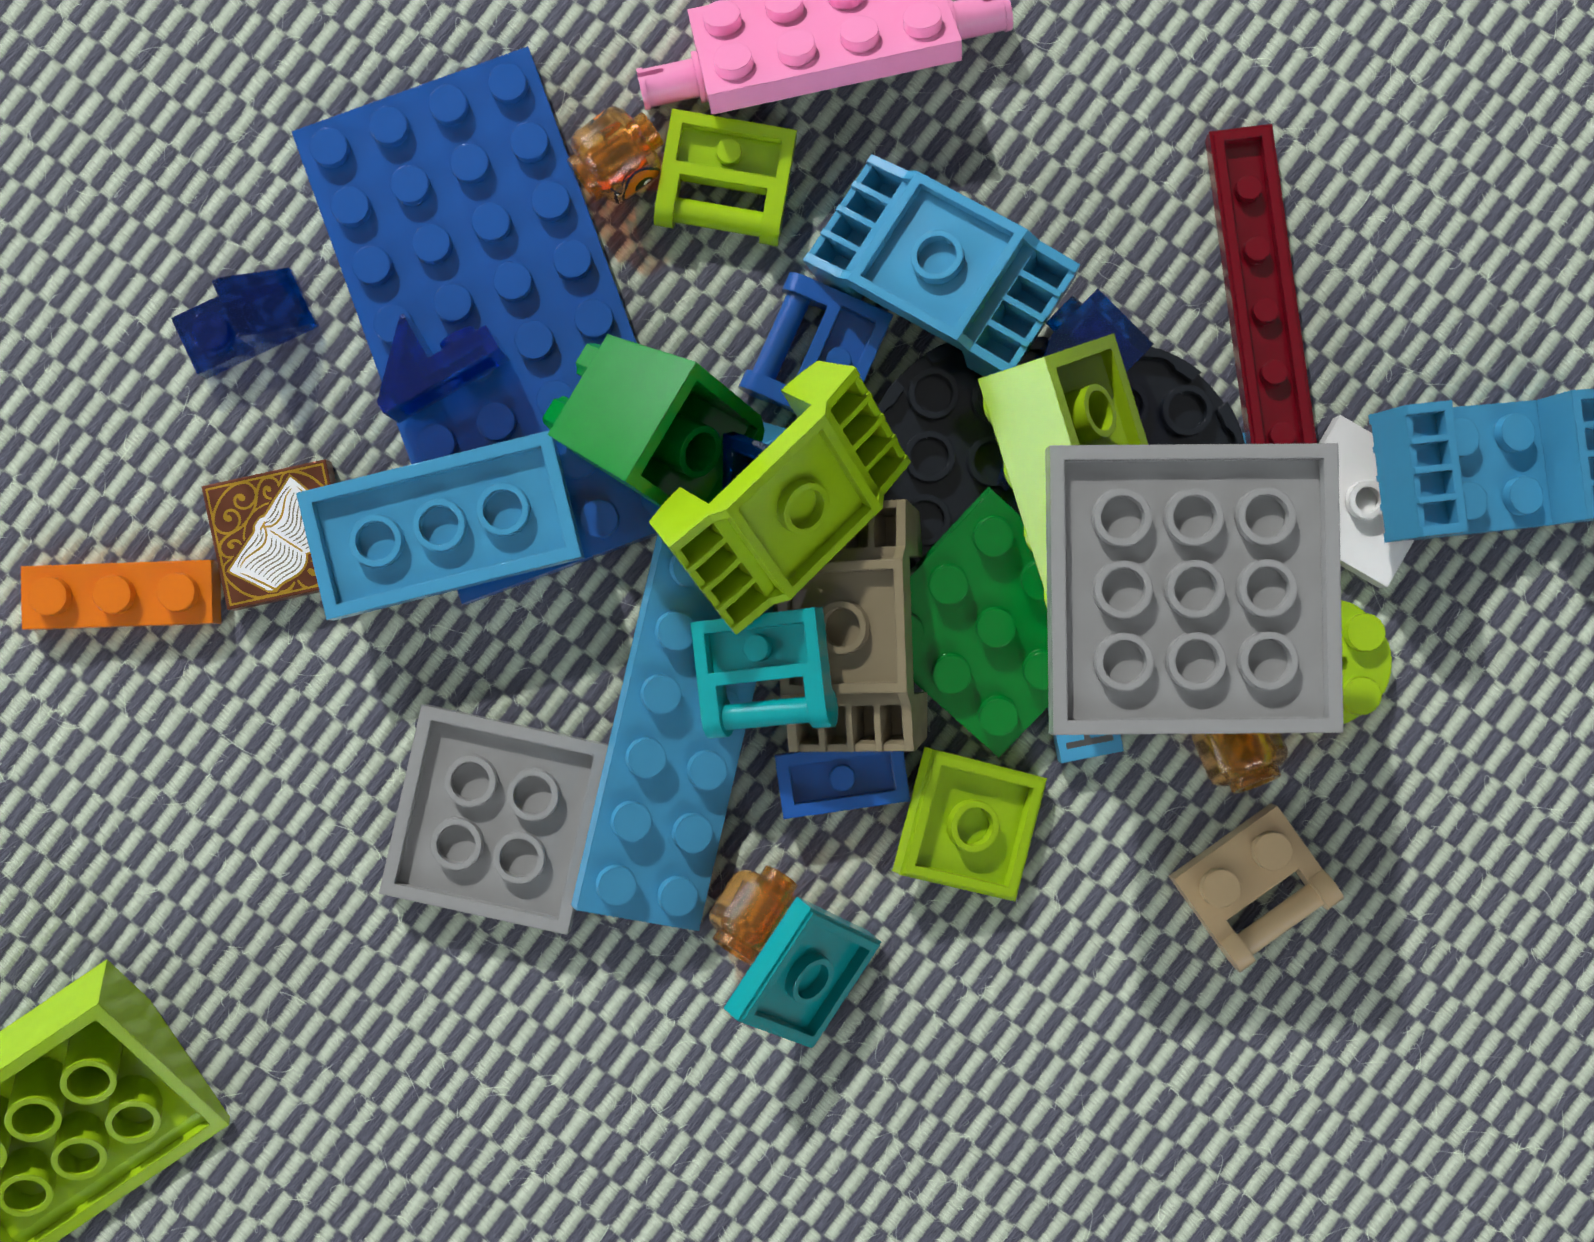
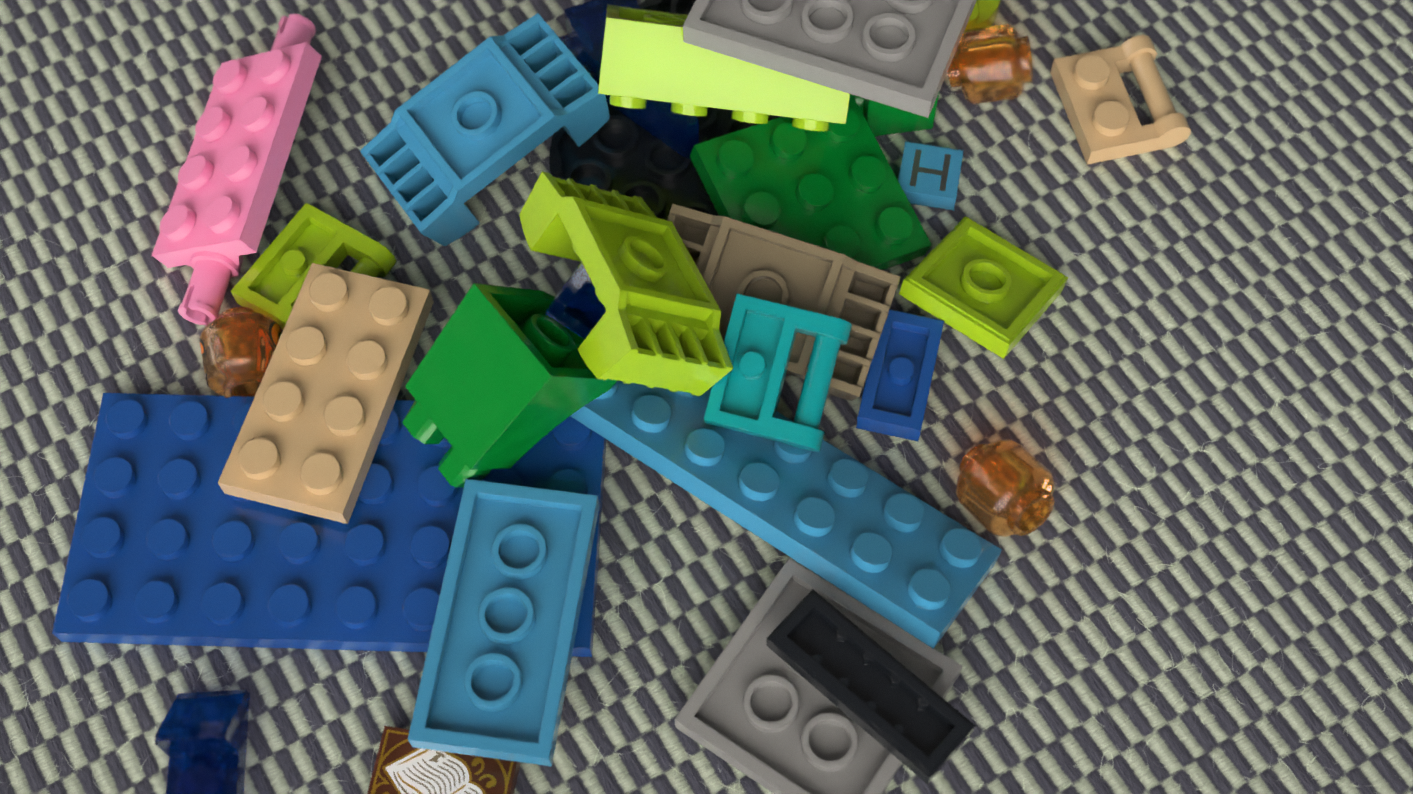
camera: 60 degrees left, 25 degrees down
(420, 379) = (353, 572): clear blue slope -> none
(505, 864) = (870, 686): none -> black plate
(600, 256) = (327, 393): none -> tan plate
(802, 974) = (1076, 457): teal plate -> none
(846, 336) = (499, 235): blue plate -> none

